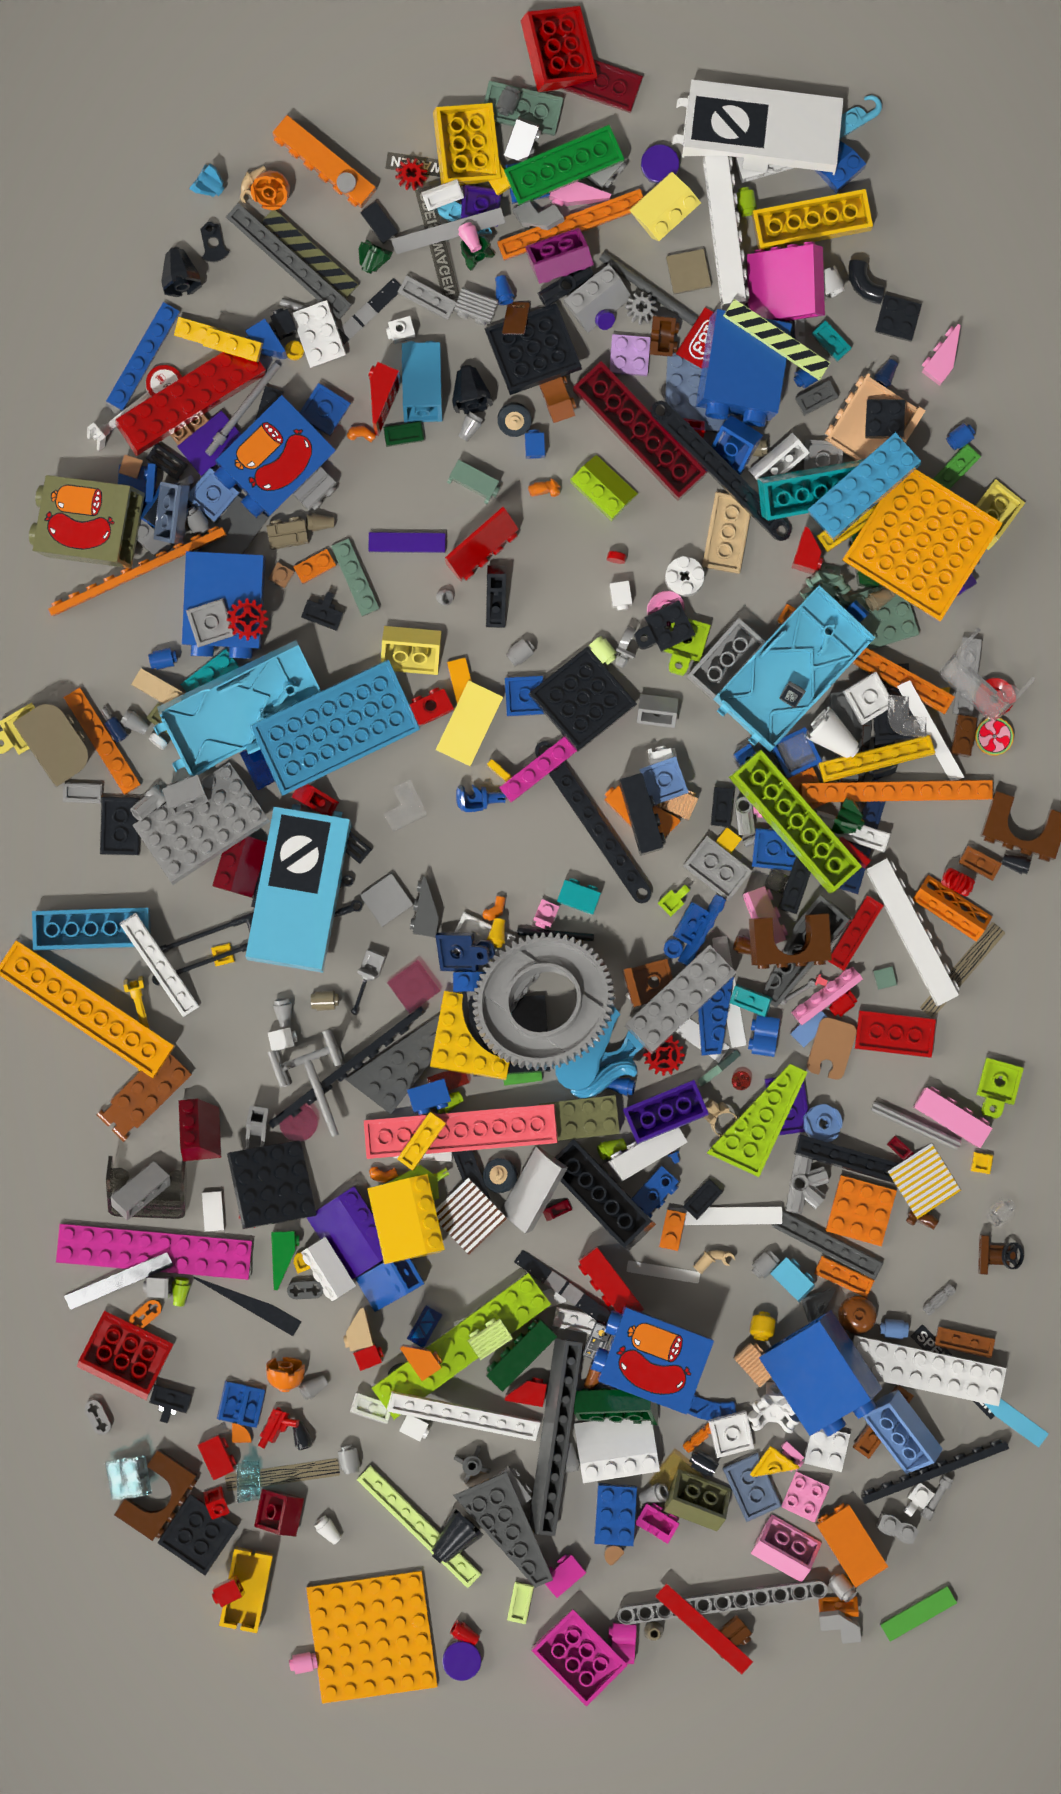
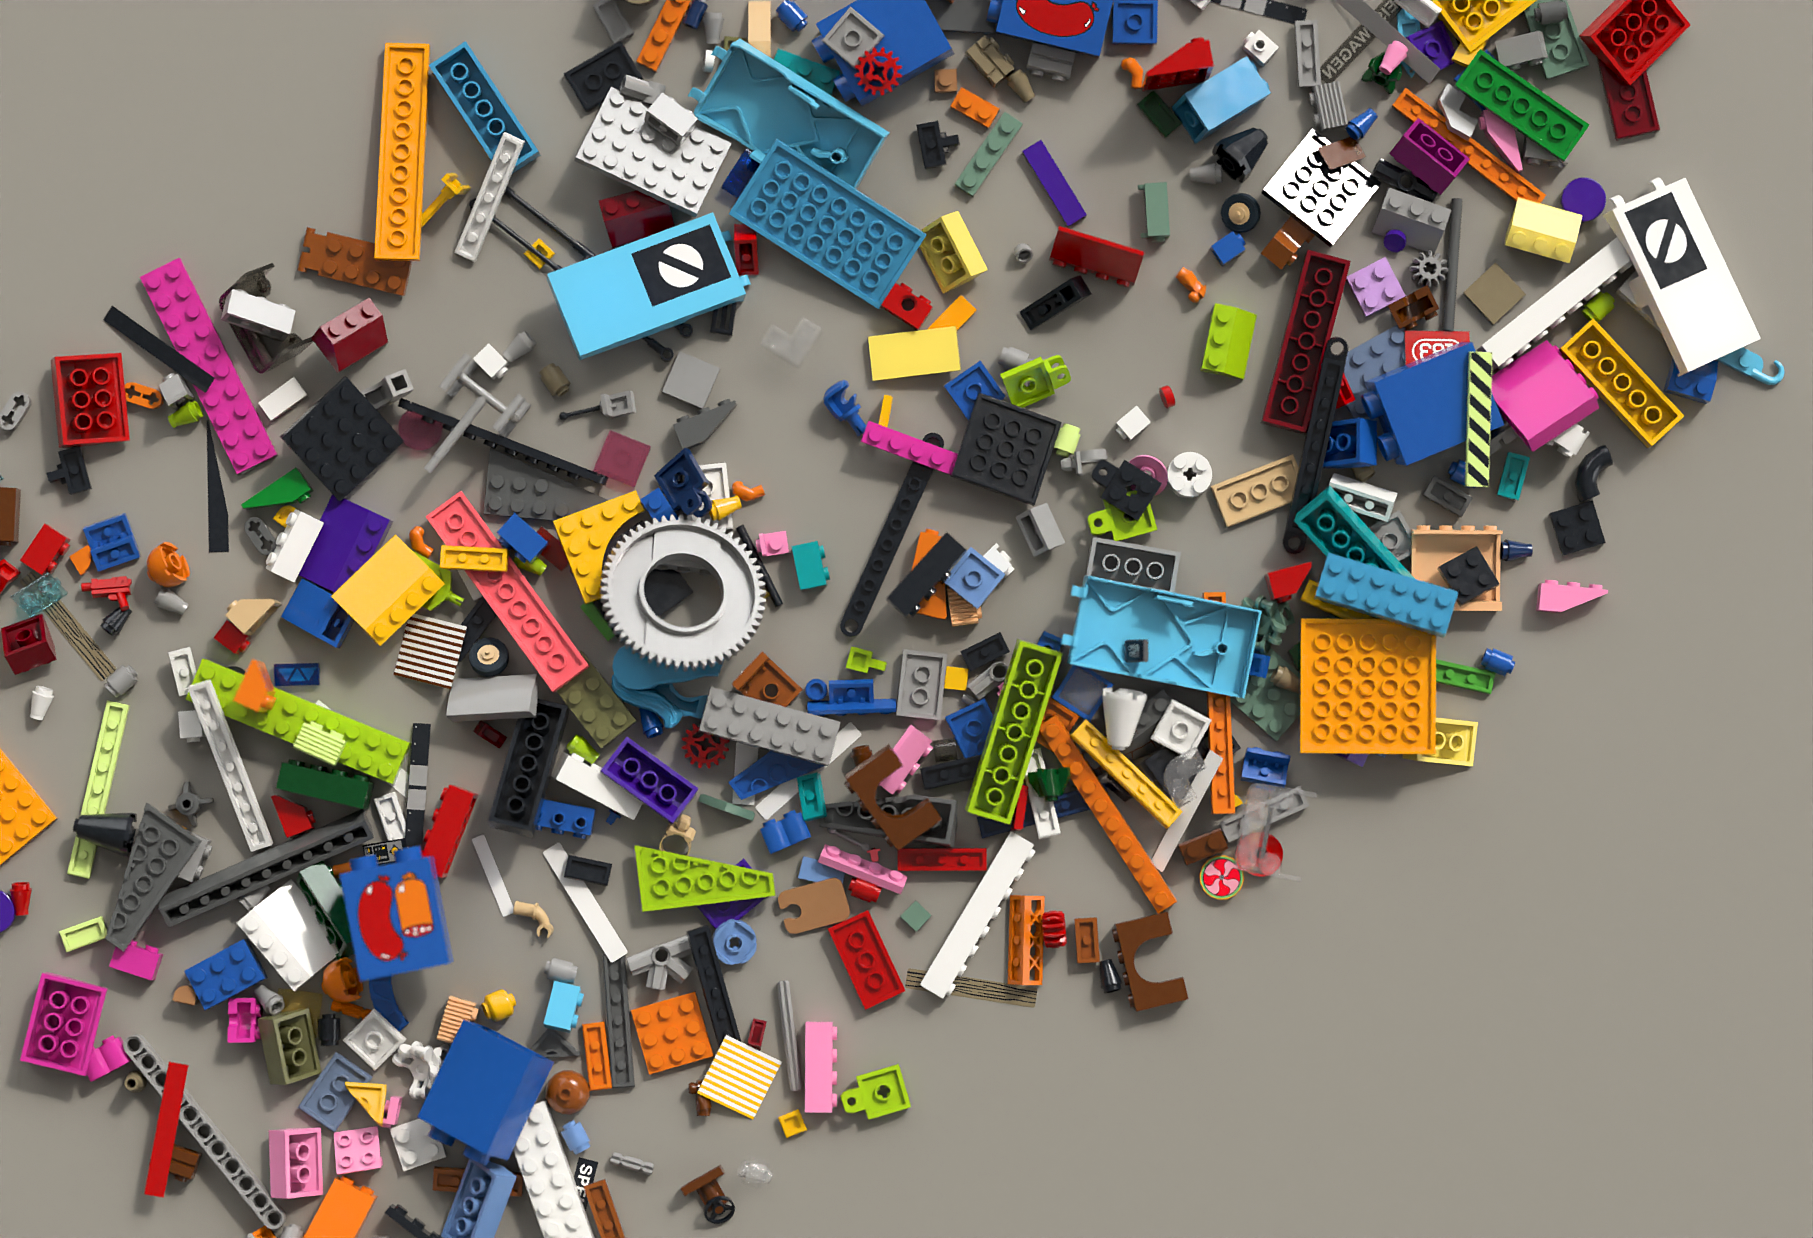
camera: 65 degrees right, 0 degrees up
(545, 640) = (1042, 379): none -> lime plate
(672, 1229) = (539, 858): orange plate -> none
(674, 1431) = (342, 981): none -> orange cylinder
(741, 1080) = (727, 836): clear red tile -> none
(933, 654) = (1265, 767): none -> blue bracket

